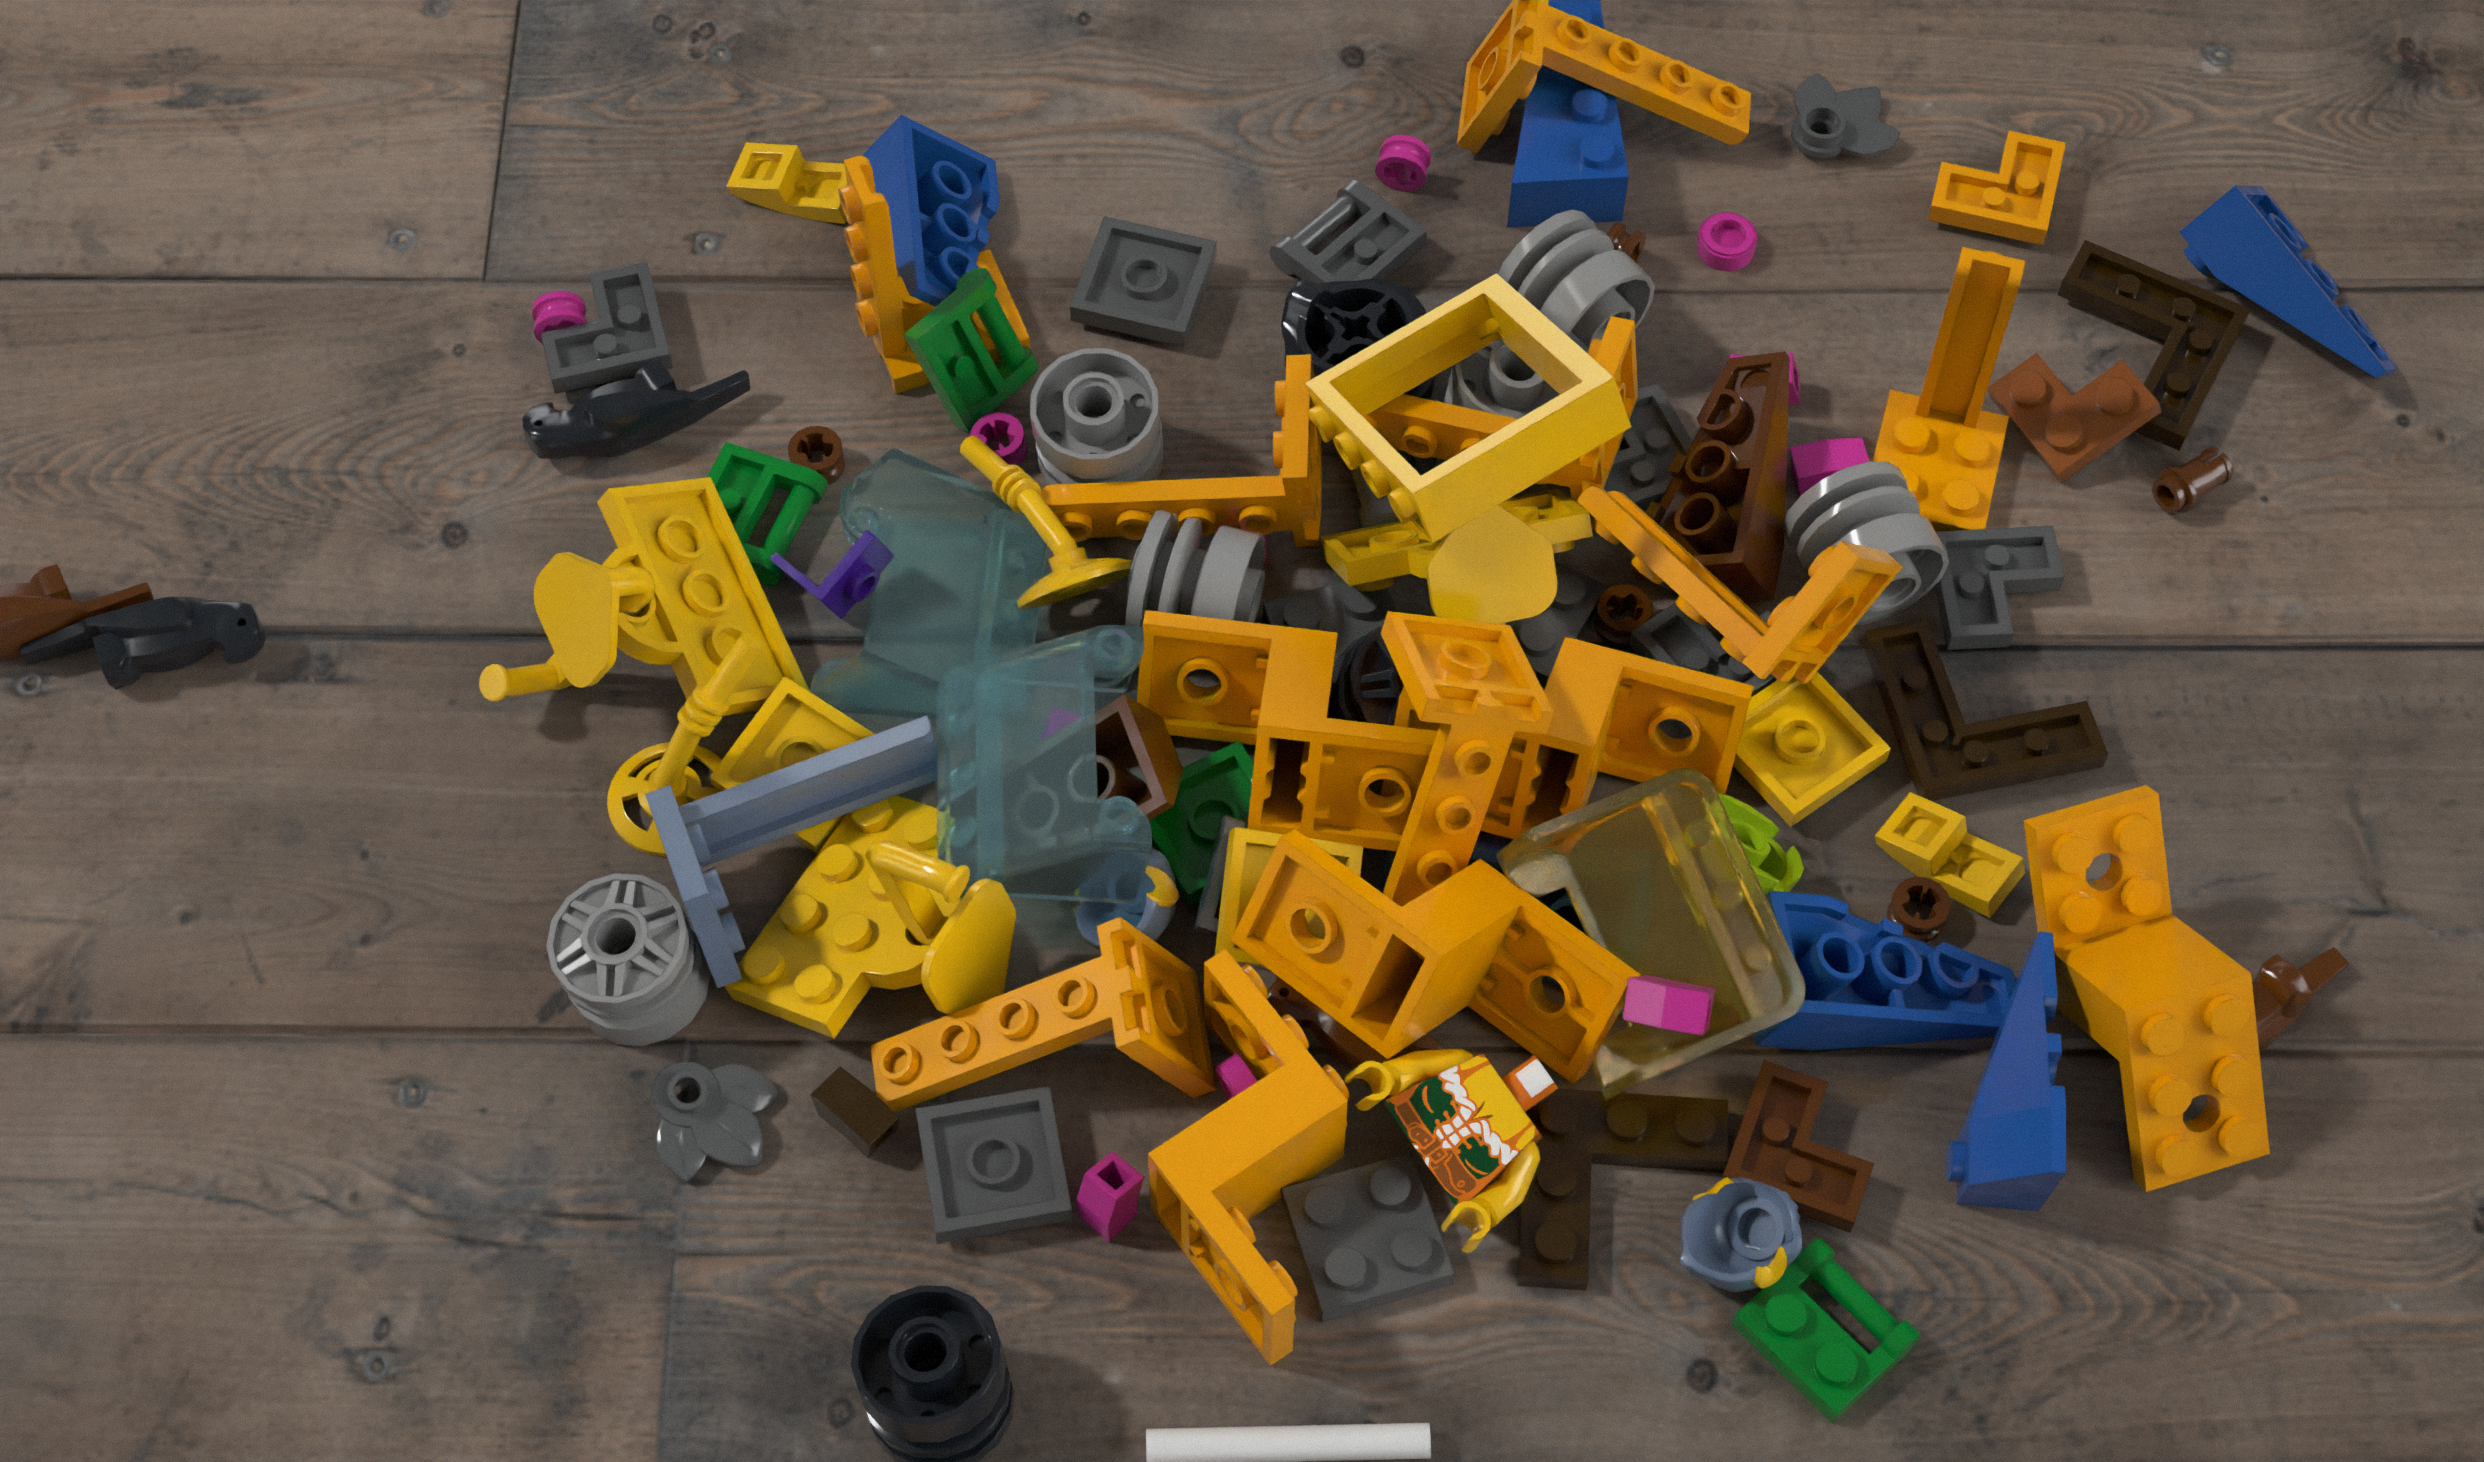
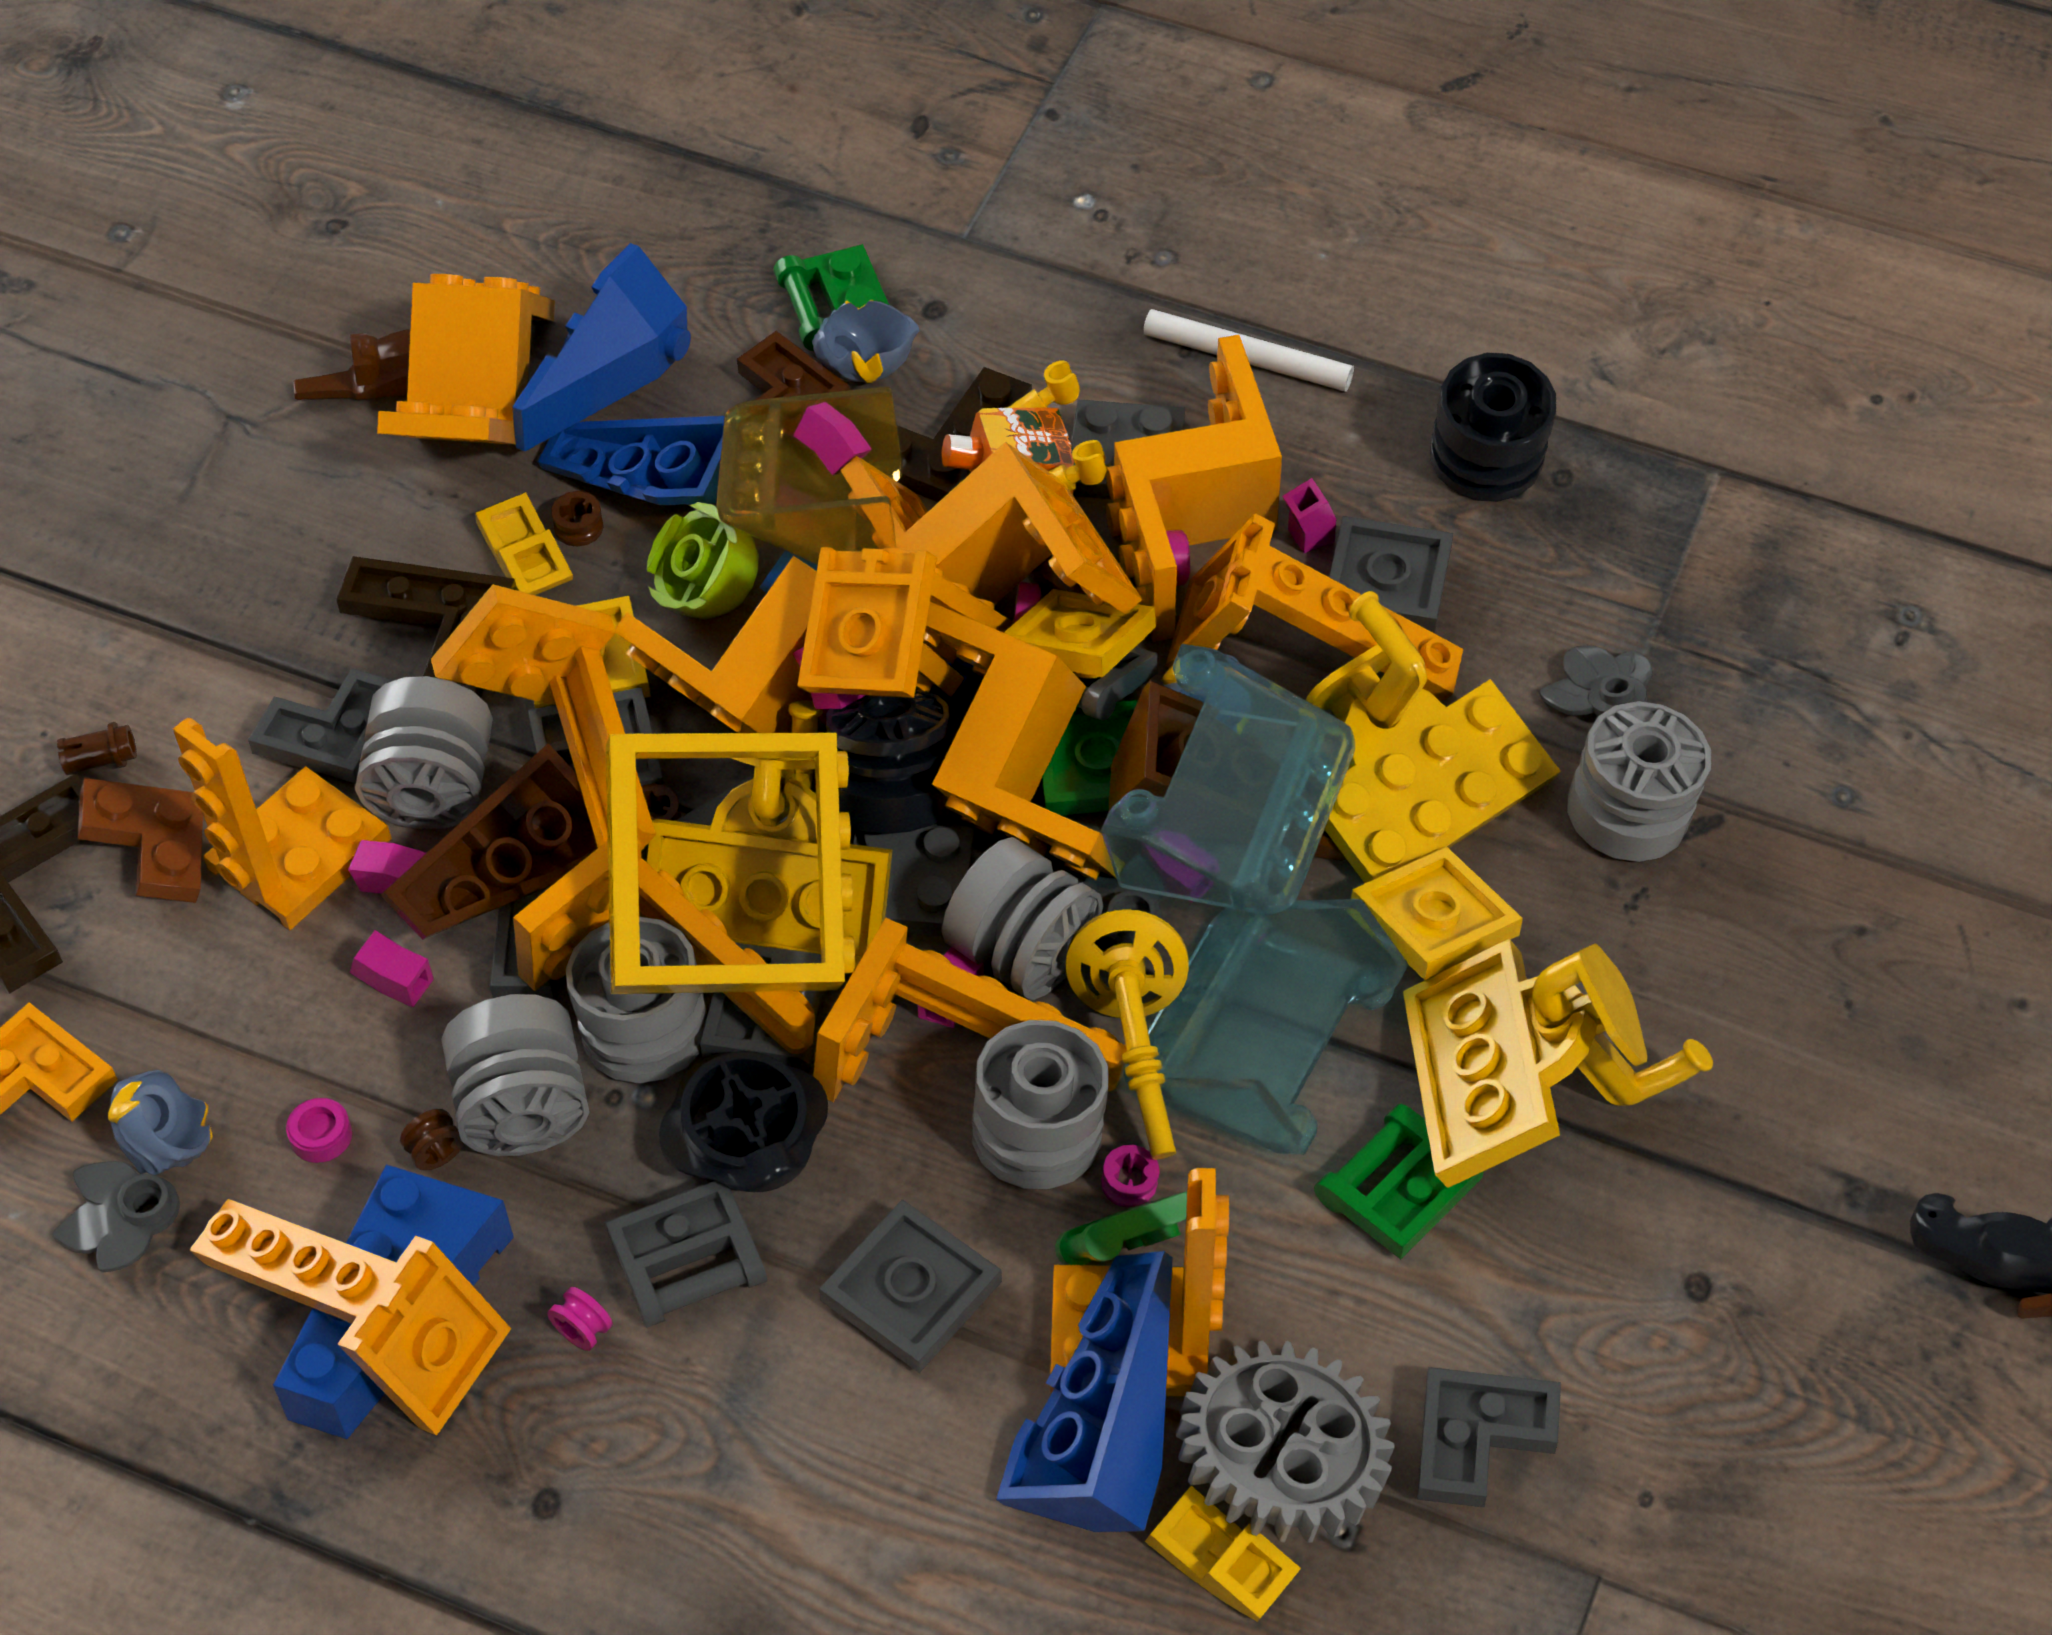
camera: 155 degrees left, 5 degrees down
(557, 311) = (1531, 1462): dark pink bush -> none
(626, 414) = (1496, 1324): black animal -> none
(696, 720) = (1549, 935): yellow dish -> none
(723, 255) = (1337, 1473): none -> light grey gear
(776, 808) = (1551, 853): sand blue bracket -> none
(815, 439) = (1314, 1242): reddish brown bush -> none
(850, 579) = (1347, 1059): dark purple bracket -> none
(855, 1111) = (1483, 643): dark brown piece -> none
(1851, 169) = (158, 1122): none -> sand blue hair

